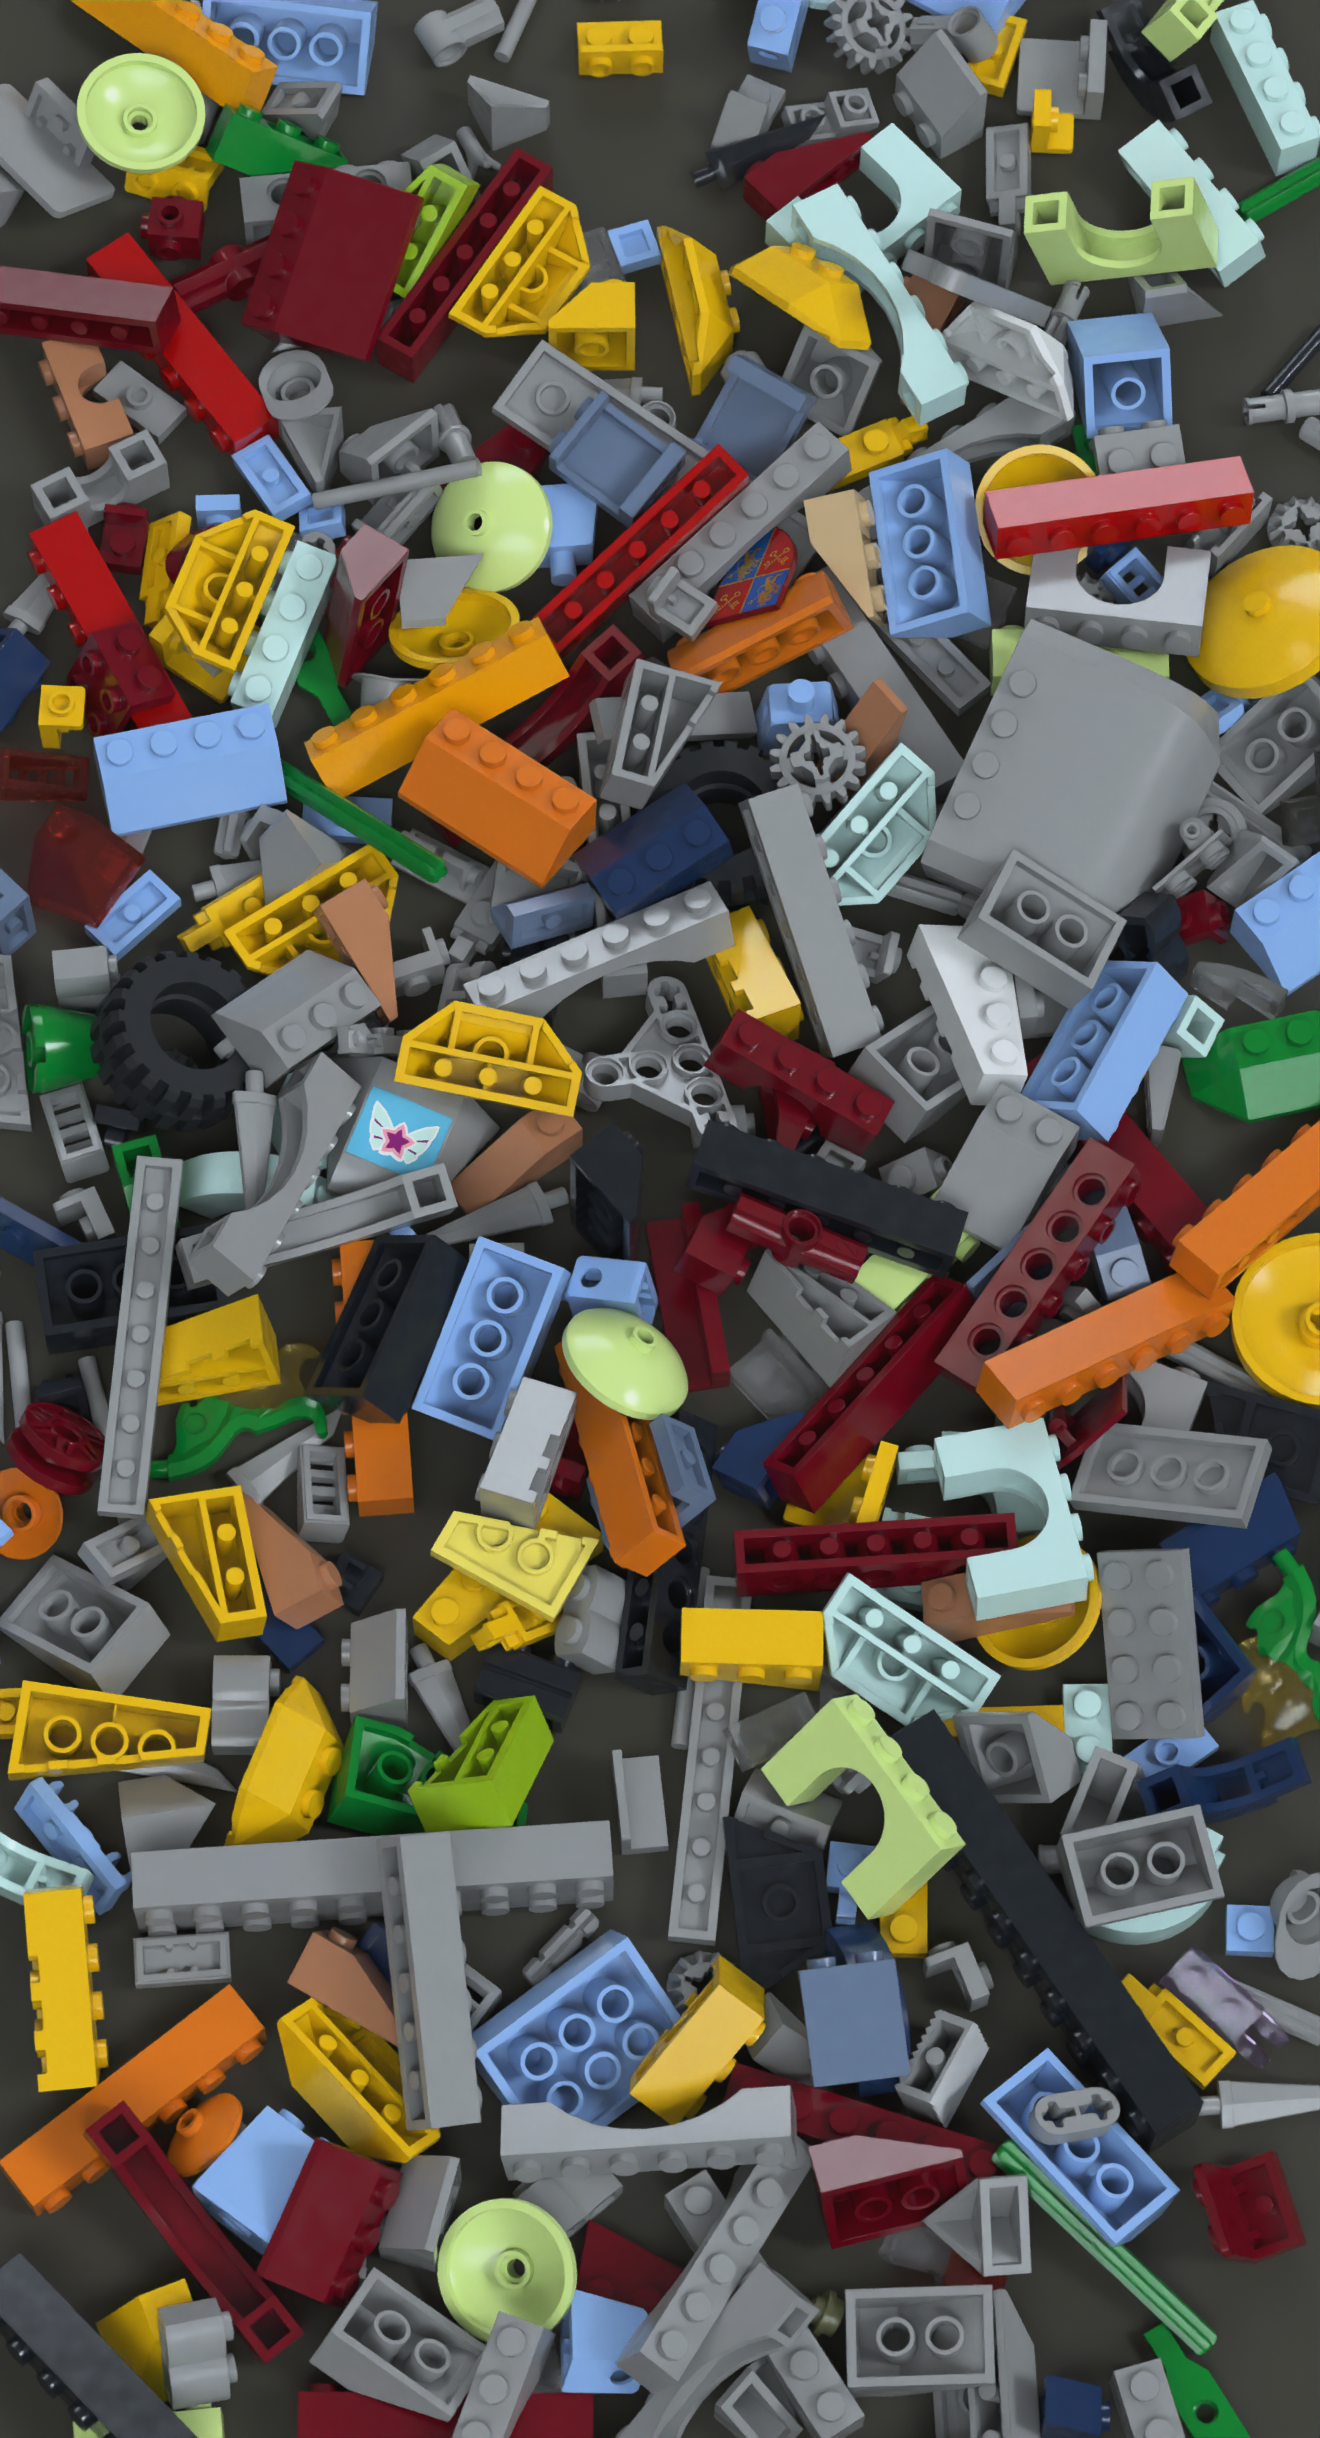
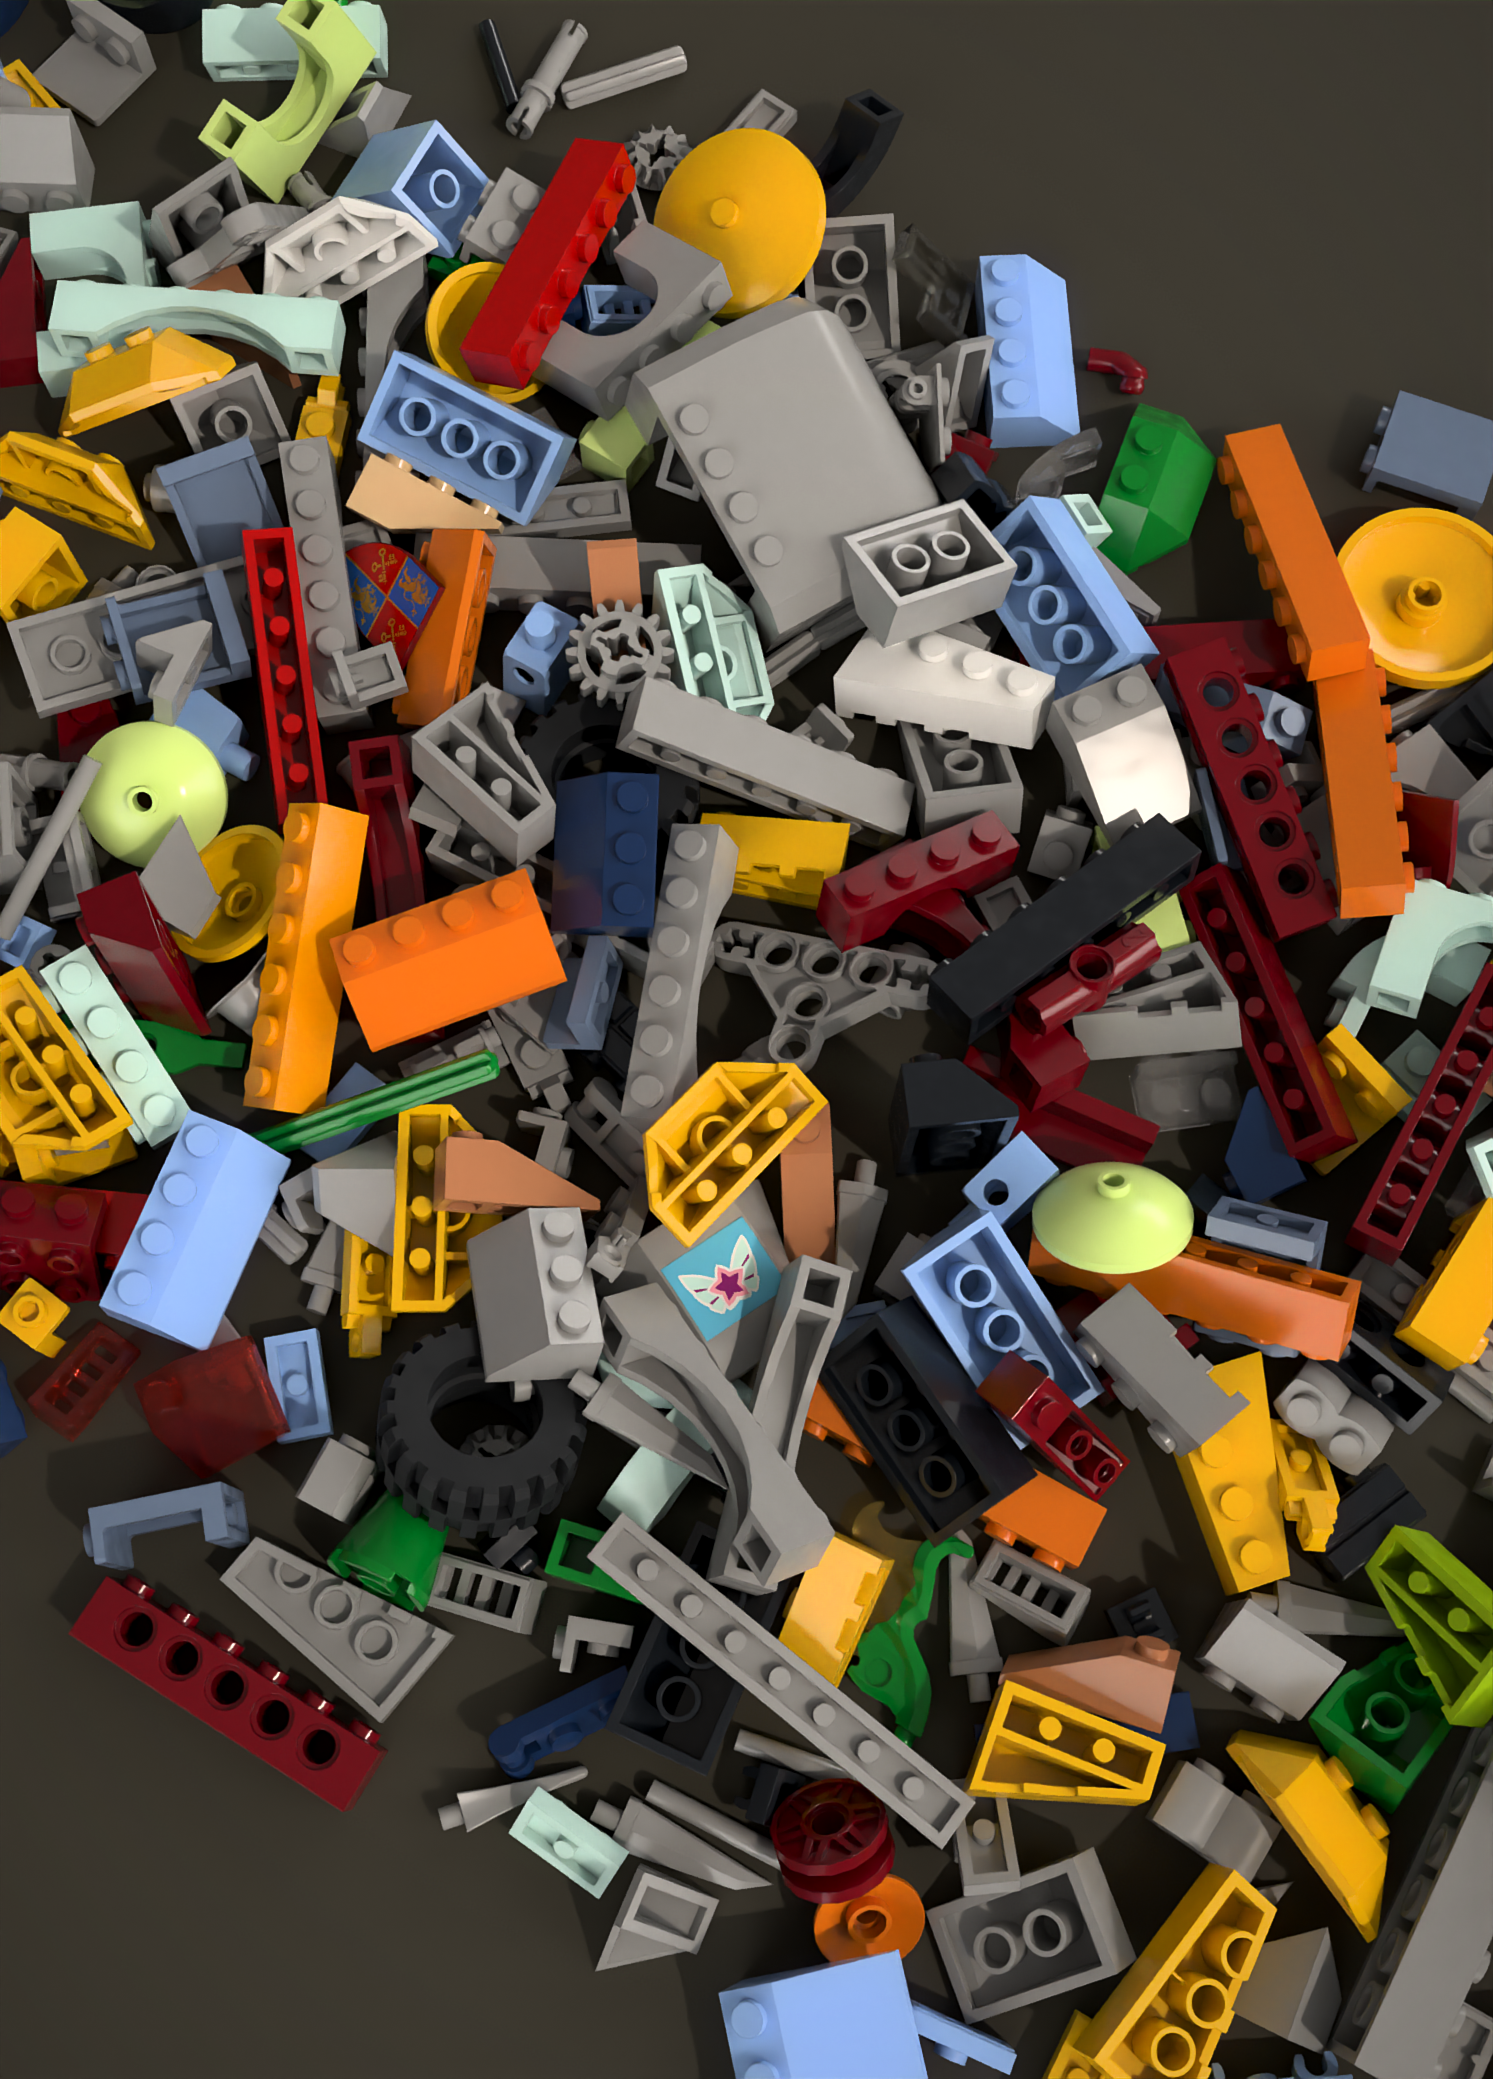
camera: 55 degrees left, 5 degrees up
(441, 1414) = (1052, 1424): none -> dark red slope
(515, 1561) = (1254, 1453): light yellow wing -> none
(597, 473) = (177, 662): none -> light grey slope
(1008, 172) = (144, 159): light grey hinge -> none
(1050, 130) = (130, 103): yellow bracket -> none

